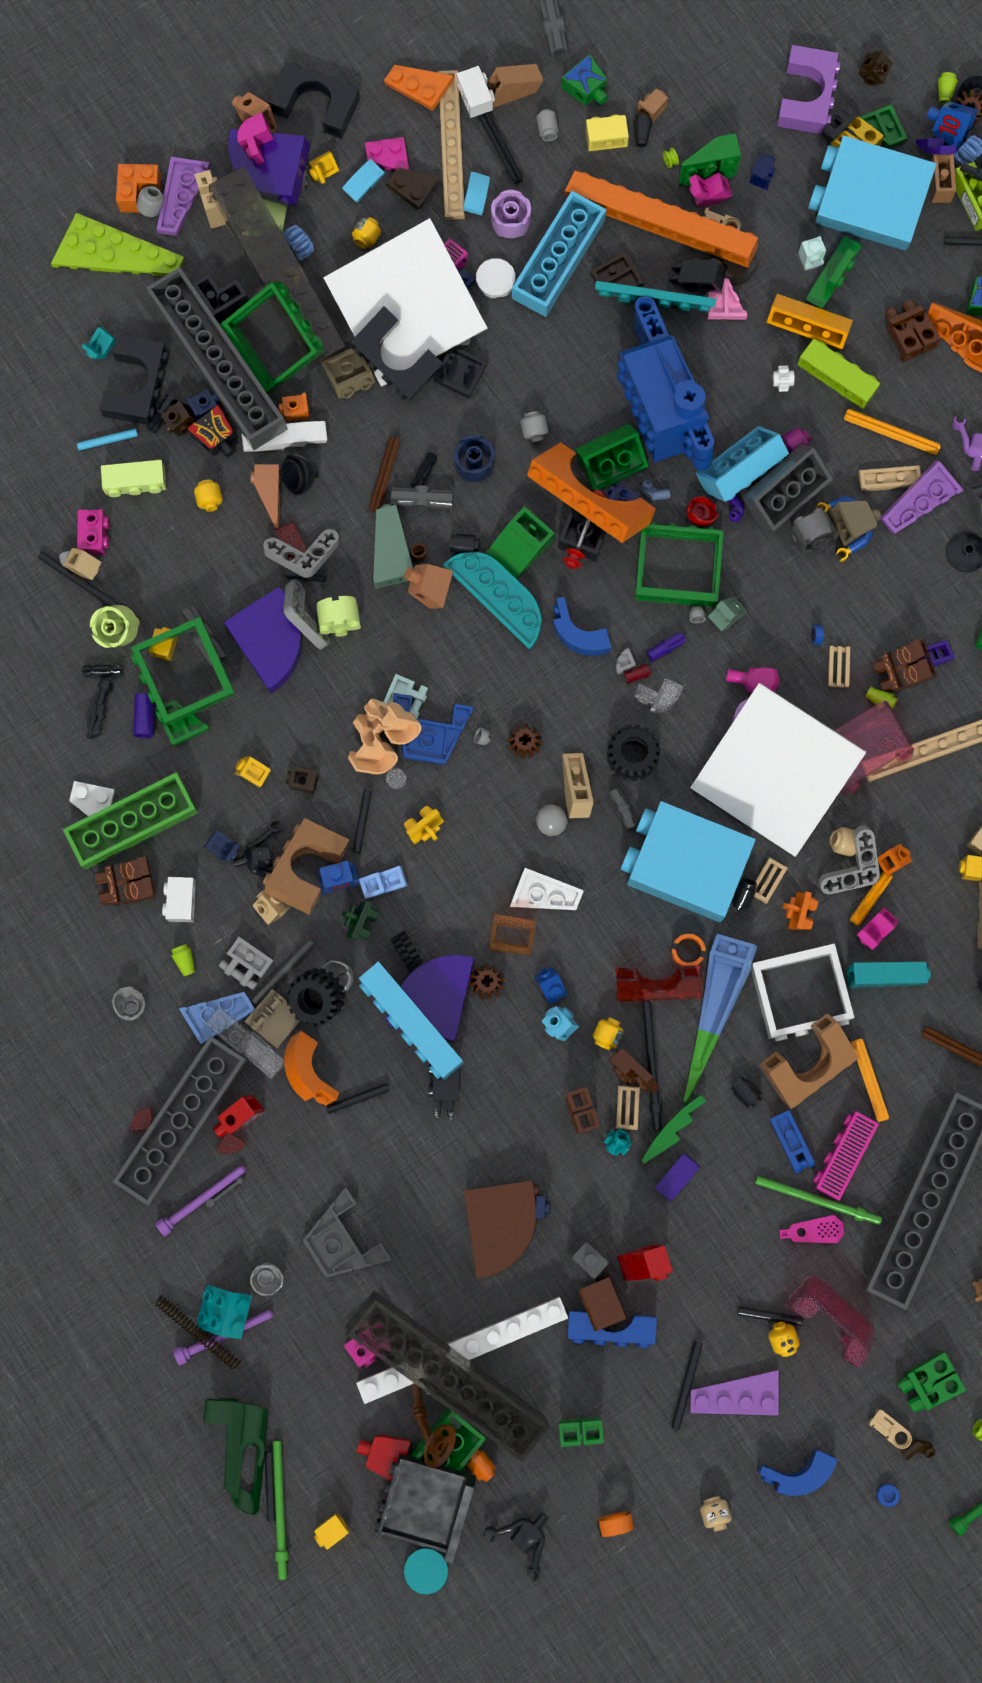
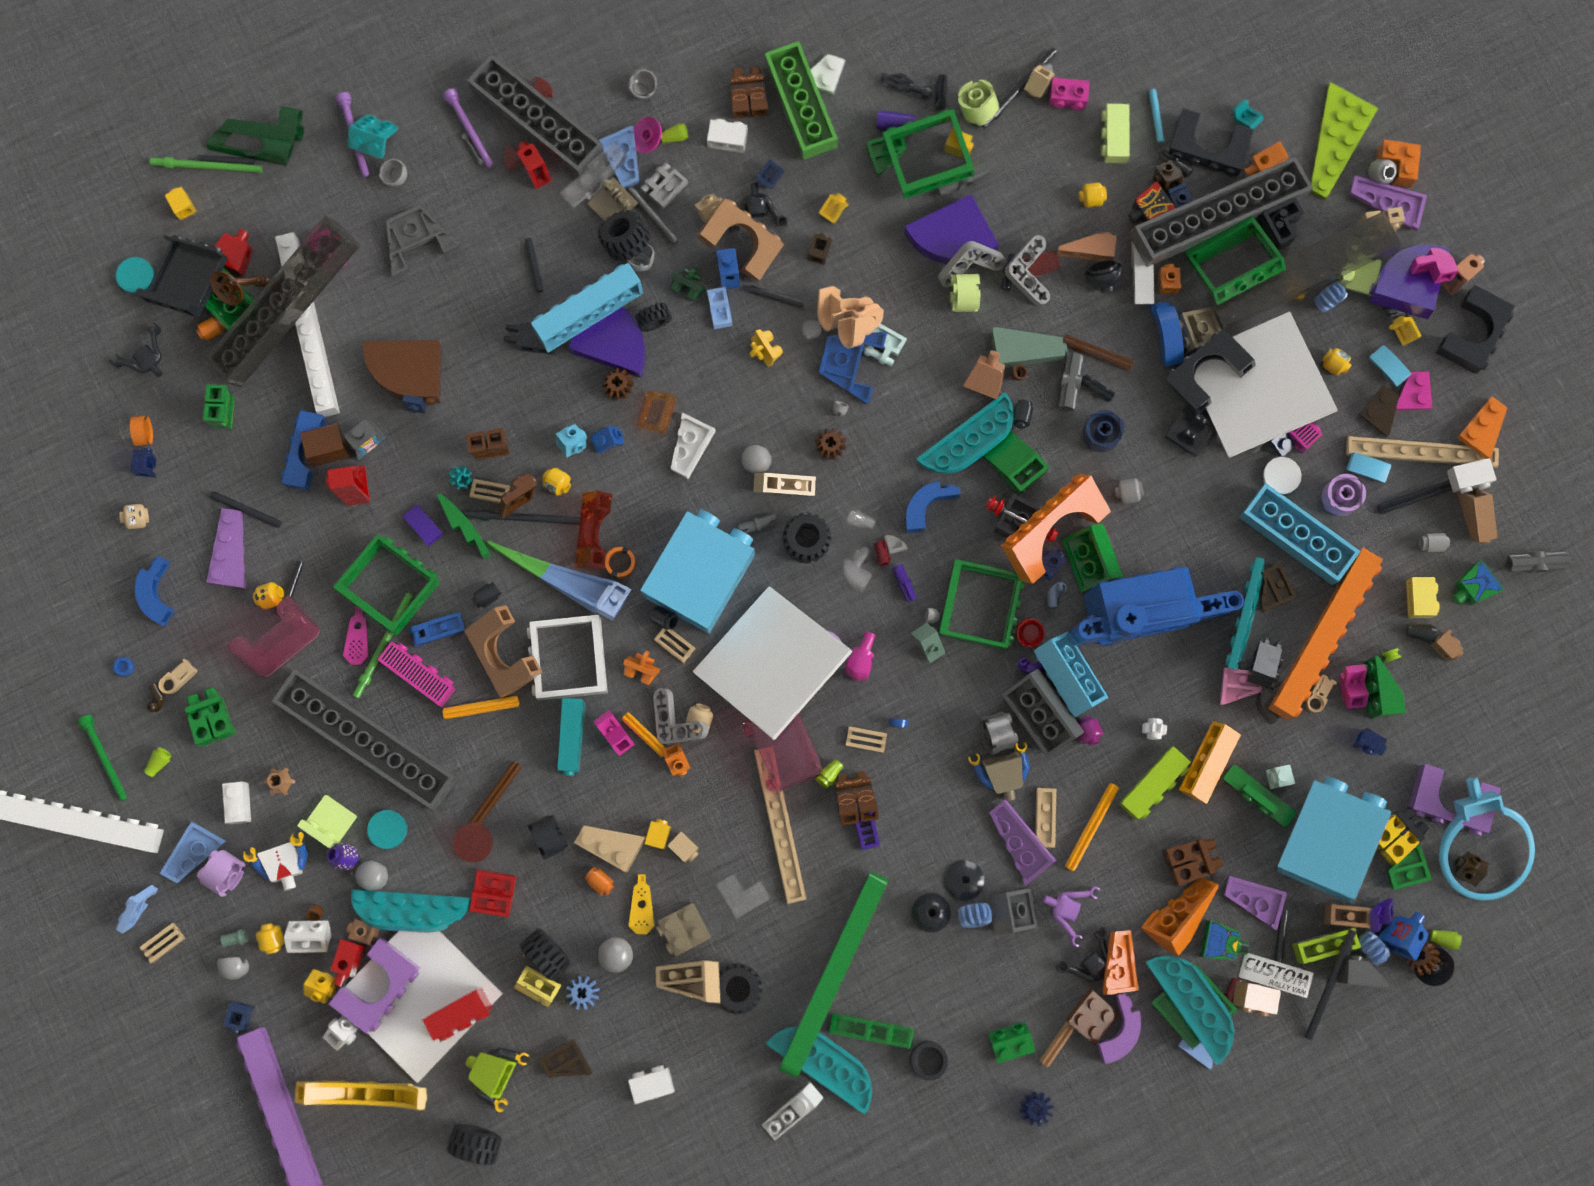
camera: 95 degrees right, 0 degrees up
(148, 313) = (1267, 158): none -> orange torso
(178, 1315) = (390, 90): dark brown piece -> none
(184, 997) = (647, 134): none -> dark pink dish
(301, 1073) = (562, 215): orange arch -> none
(356, 399) = (1169, 333): none -> blue arch
(603, 703) = (859, 519): none -> clear cone
(651, 1515) = (143, 462): none -> clear blue brick
(784, 1221) = (359, 565): none -> green window
(819, 74) = (1474, 805): none -> medium azure brick
(937, 265) = (1258, 899): none -> medium lavender wing

